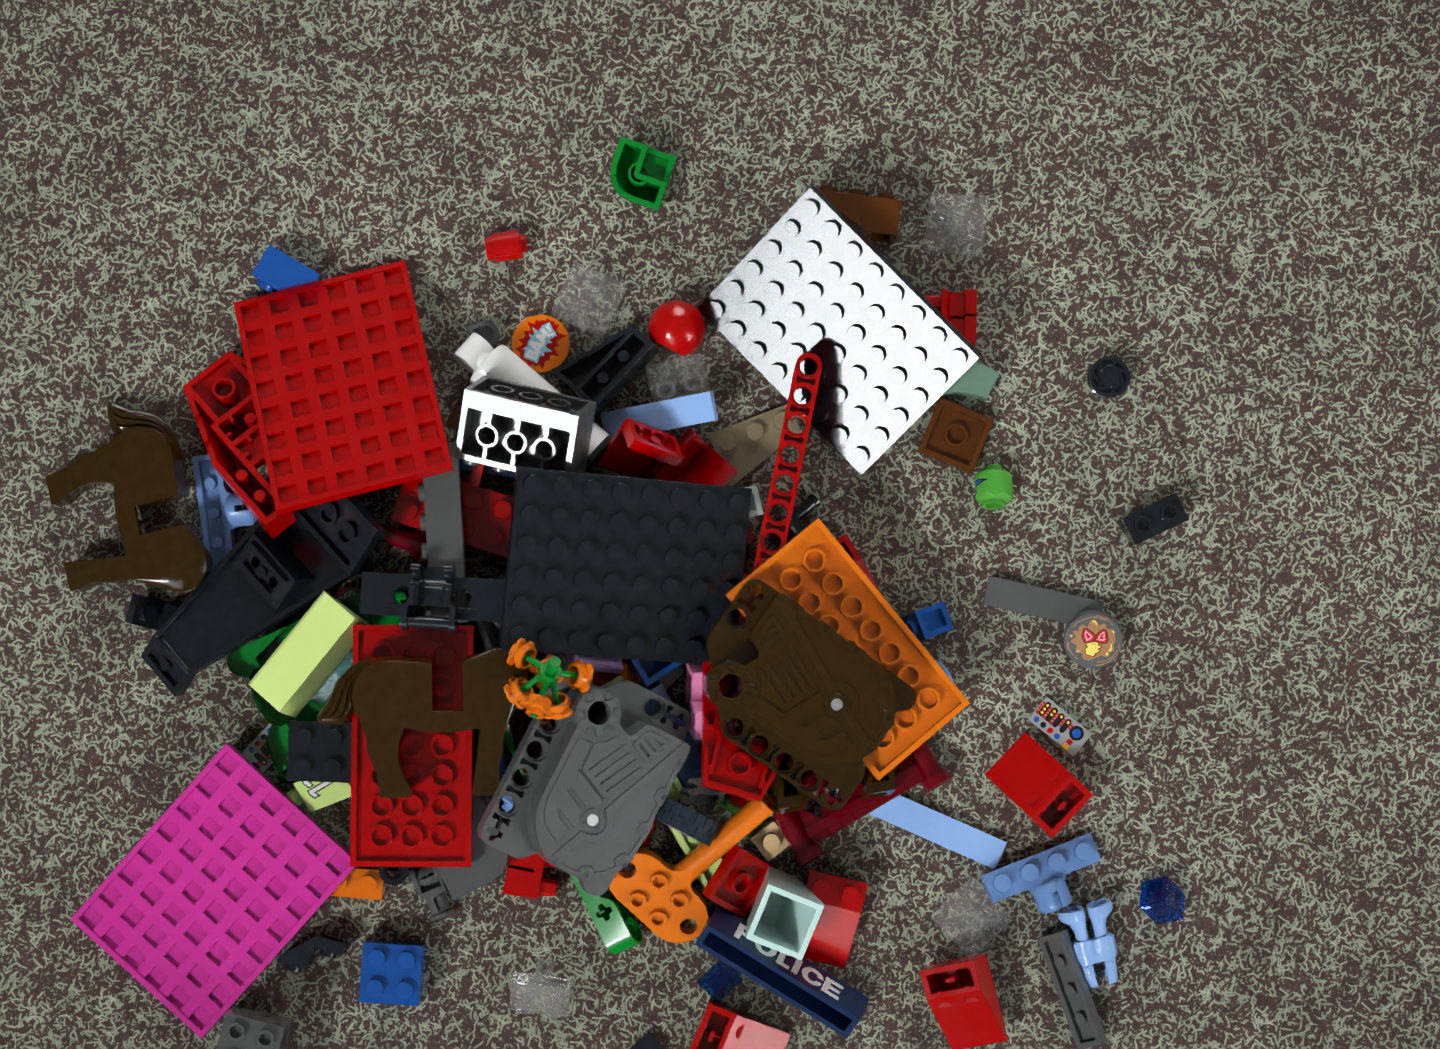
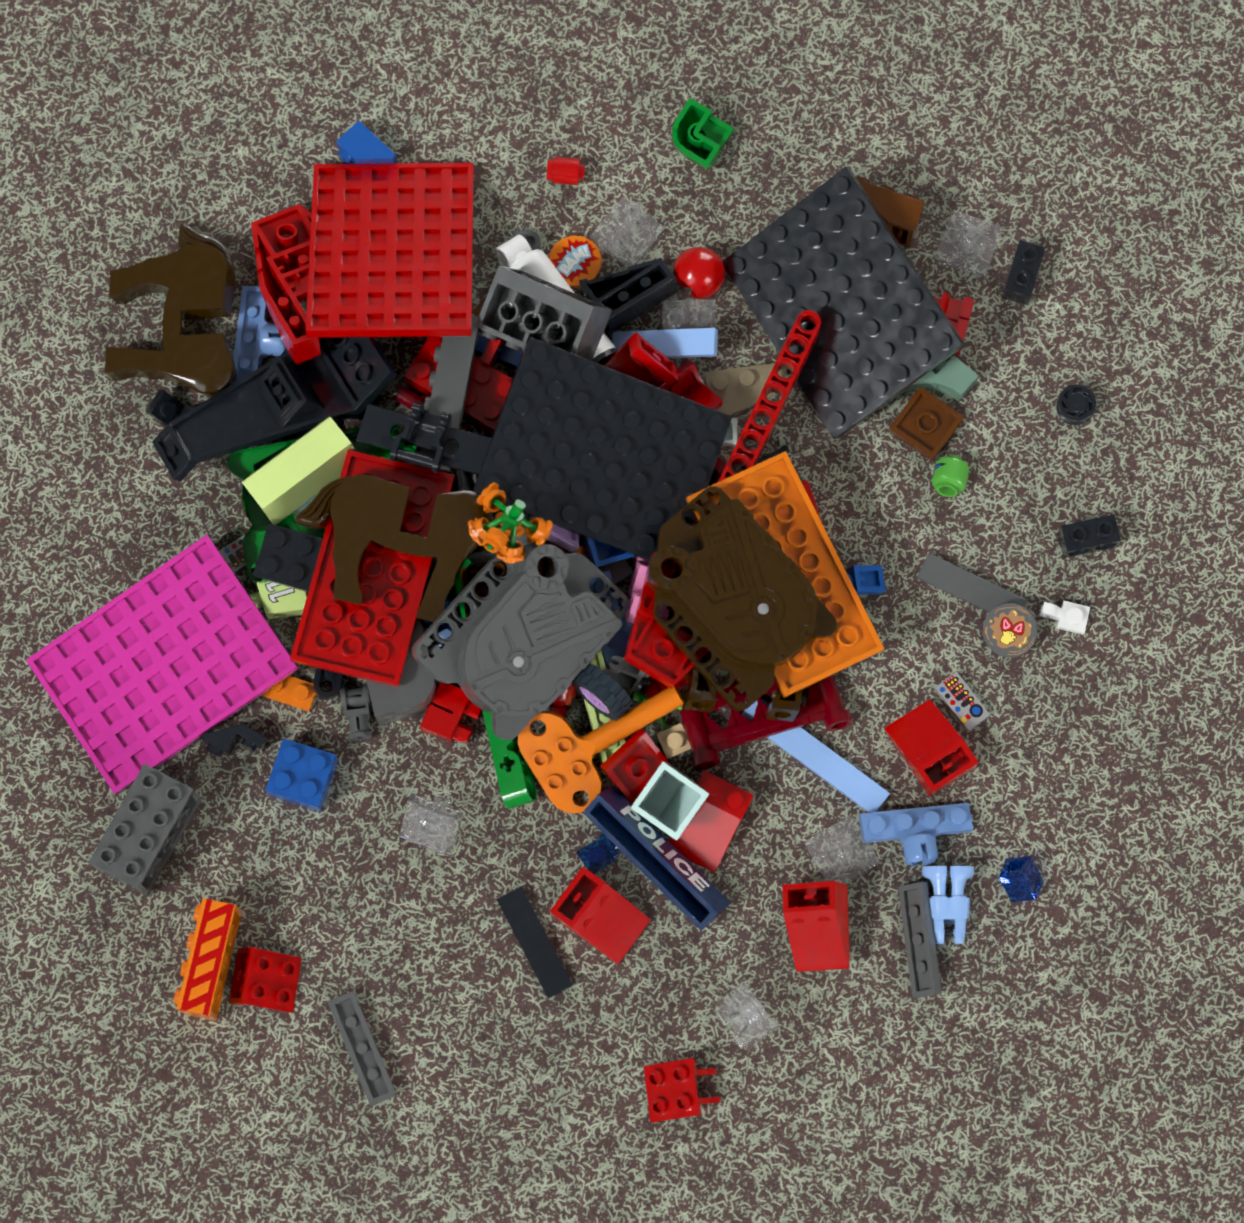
camera: 20 degrees right, 10 degrees down
(1021, 245) = (1023, 272): none -> black brick
(1151, 608) = (1070, 616): none -> white plate

